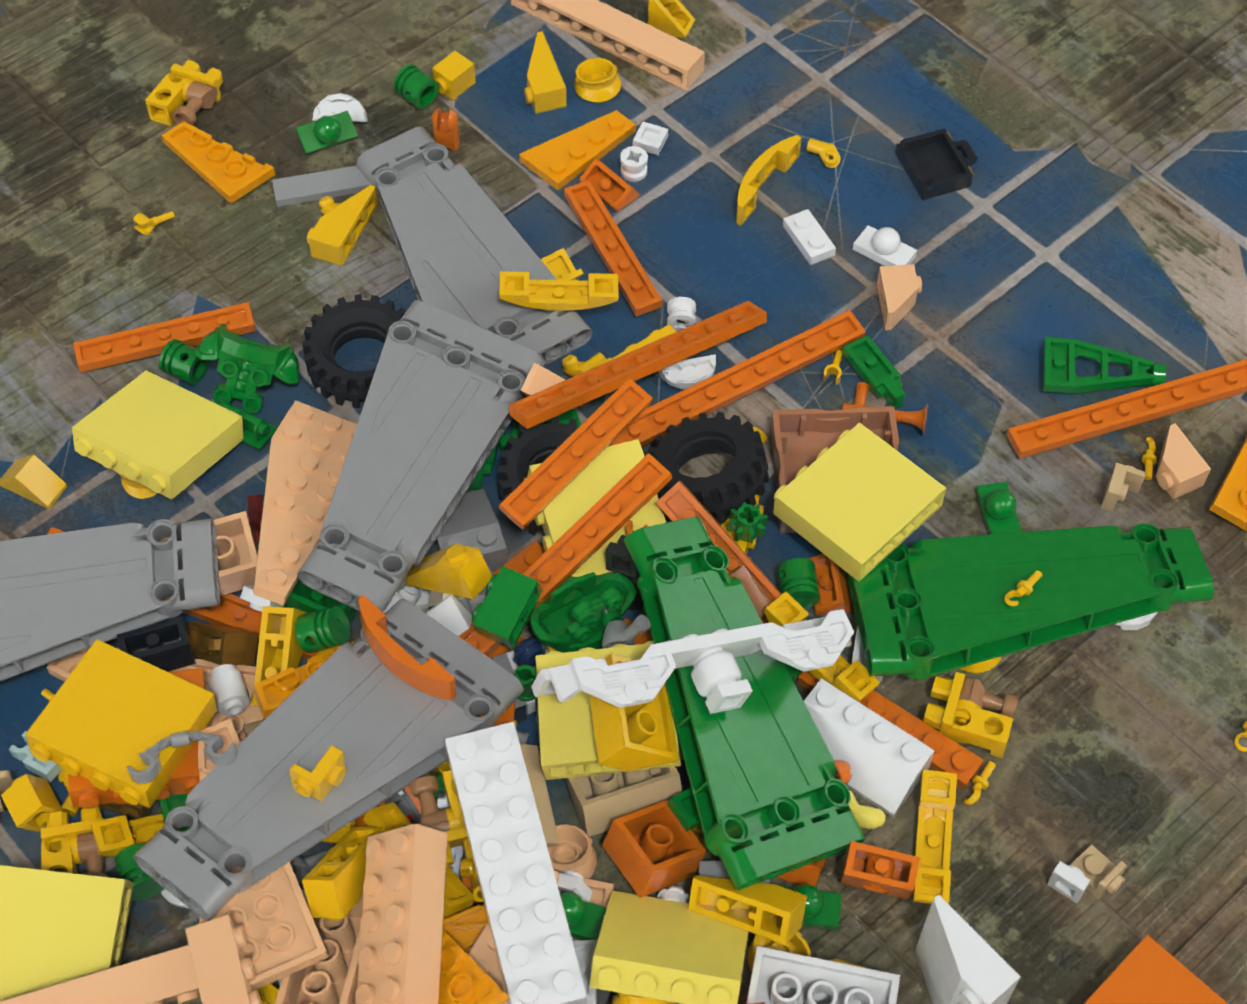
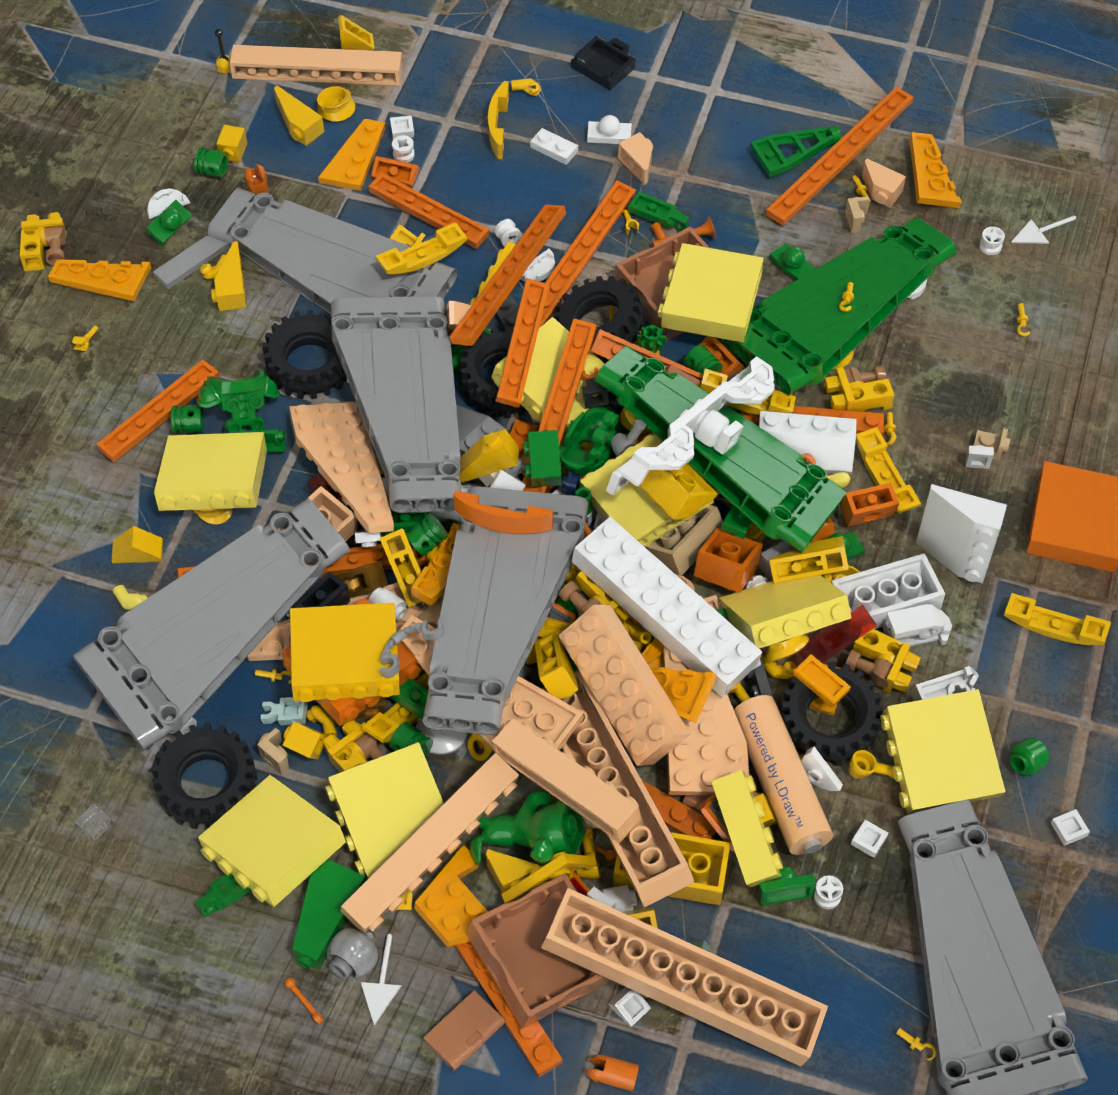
camera: 30 degrees left, 0 degrees up
(326, 774) = (509, 616): yellow bracket -> none
(574, 367) = (466, 297): yellow arm -> none

